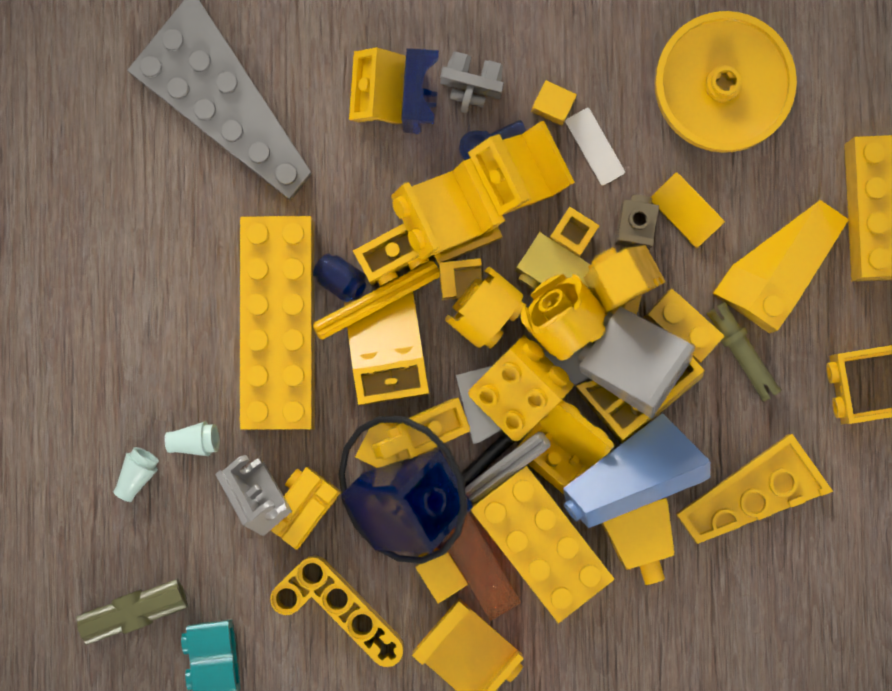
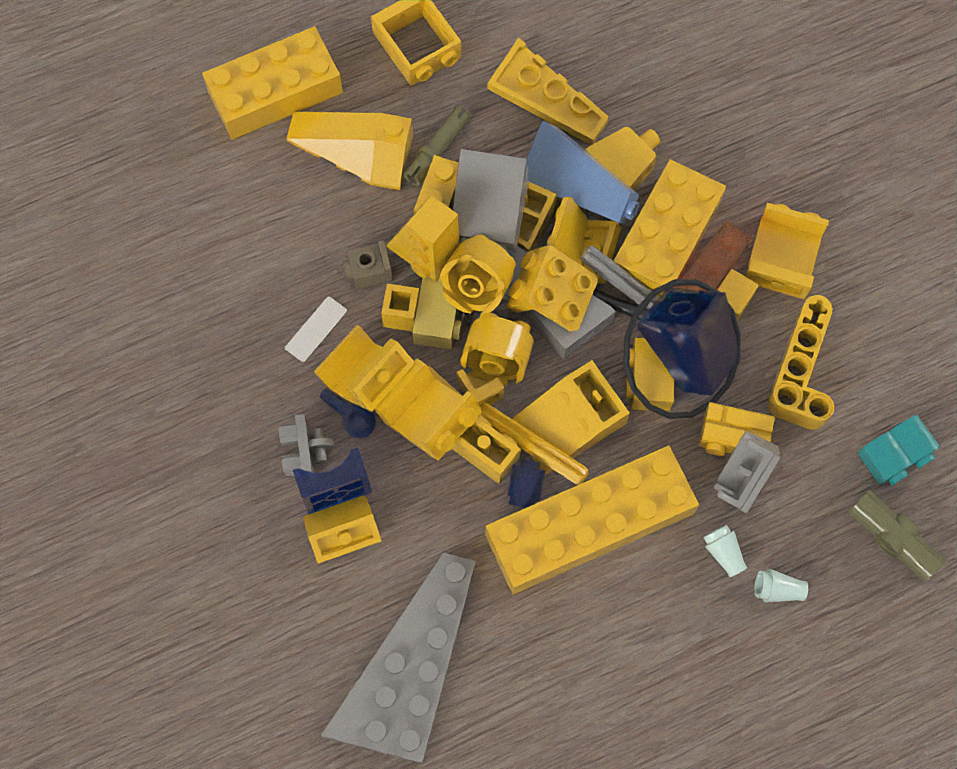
camera: 115 degrees left, 15 degrees down
(444, 420) = (608, 341): yellow hinge -> none
(553, 103) = (293, 375): yellow slope -> none
(687, 210) = (339, 233): yellow slope -> none
(725, 81) = (219, 241): yellow dish -> none

